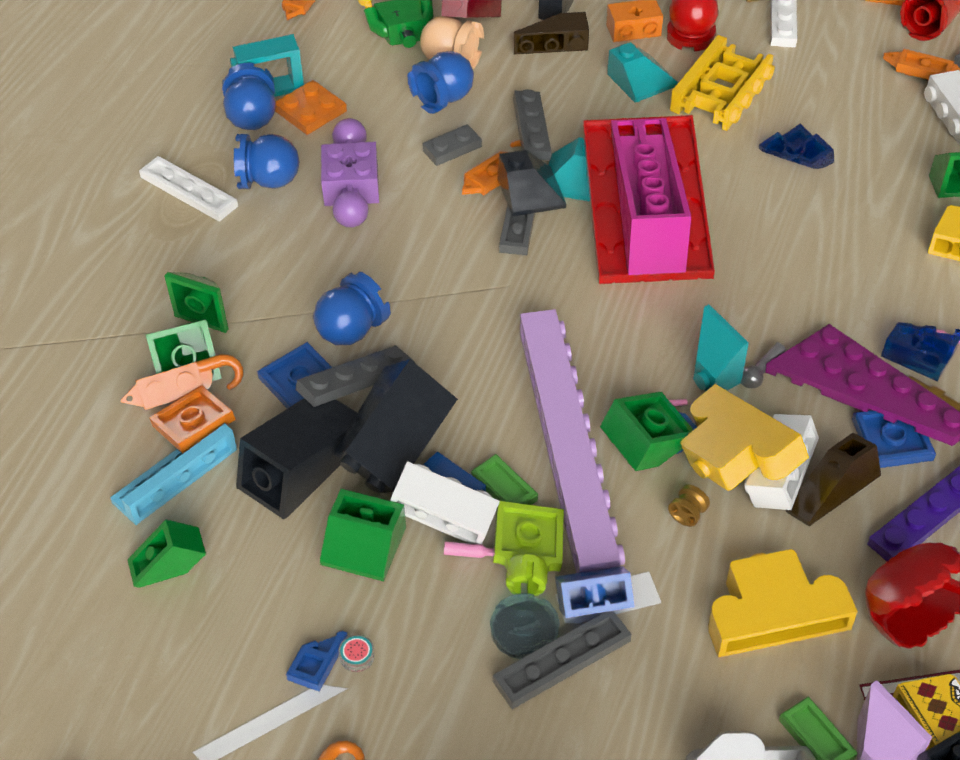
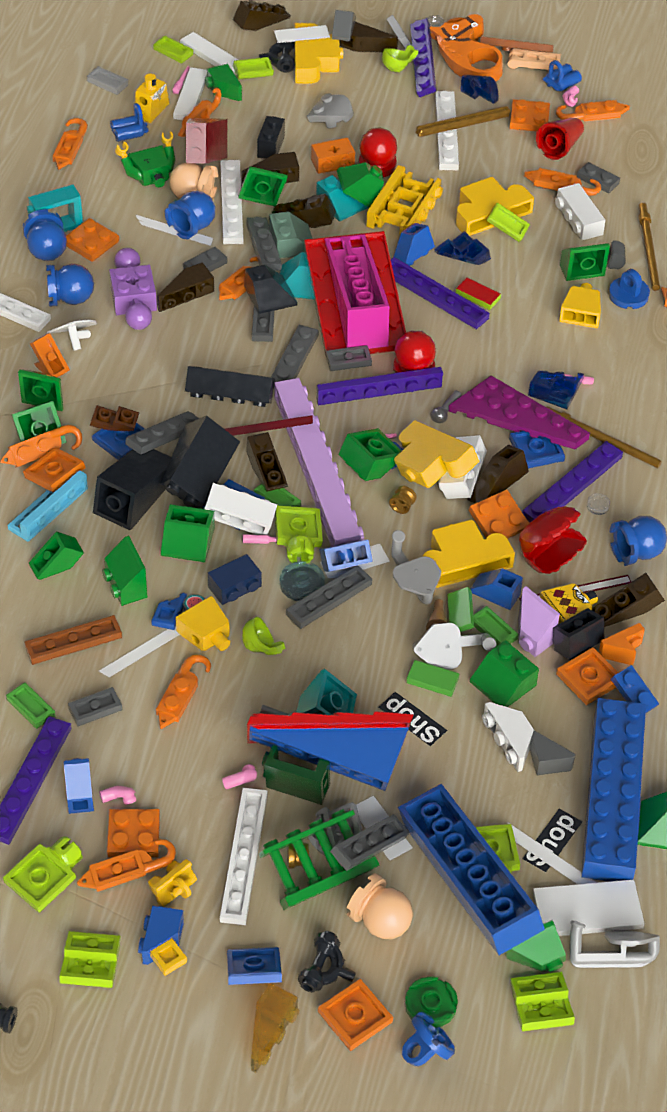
camera: 10 degrees left, 0 degrees up
(161, 697) = (73, 639): none -> dark orange plate
(221, 256) = (49, 356): none -> orange slope
(258, 594) = (125, 573): none -> green slope
(261, 228) = (74, 334): none -> white shield
(286, 351) = (119, 420): none -> reddish brown slope
(350, 310) = (153, 388): blue tile -> none
(365, 692) = (204, 625): none -> yellow torso
(408, 98) = (165, 228): none -> white sticker
(422, 173) = (187, 286): none -> dark brown slope
(422, 616) = (234, 579): none -> dark blue brick
(445, 723) = (259, 639): none -> lime piece
(457, 313) = (229, 385): none -> black wedge
(493, 432) = (265, 462): none -> dark brown slope
(497, 71) = (231, 203): none -> white plate
(505, 376) = (270, 425): none -> dark red sticker
(538, 51) = (262, 186): none -> green slope
(555, 276) = (295, 353): none -> dark grey plate
(565, 113) = (288, 233): none -> sand green slope
(592, 88) = (314, 211): none -> dark brown slope
(629, 285) = (348, 358): none -> dark grey plate
(660, 328) = (379, 386): none -> dark purple plate
(668, 53) = (361, 182): none -> green slope
(701, 637) = (415, 575): none -> light grey piece
(719, 353) = (416, 399): teal slope -> none
(725, 285) = (414, 352): none -> red tile
(729, 712) = (437, 615): none -> medium nougat cone
(730, 136) = (414, 243): none -> blue slope
(762, 206) = (438, 294): none -> dark purple plate
(767, 701) = (461, 609): none -> bright green tile
(815, 207) = (478, 293): none -> red tile
(828, 667) = (498, 587): none -> blue slope
(834, 544) = (499, 515): none -> orange plate
(836, 91) = (480, 198): none -> yellow brick
(861, 115) = (508, 222): none -> lime tile

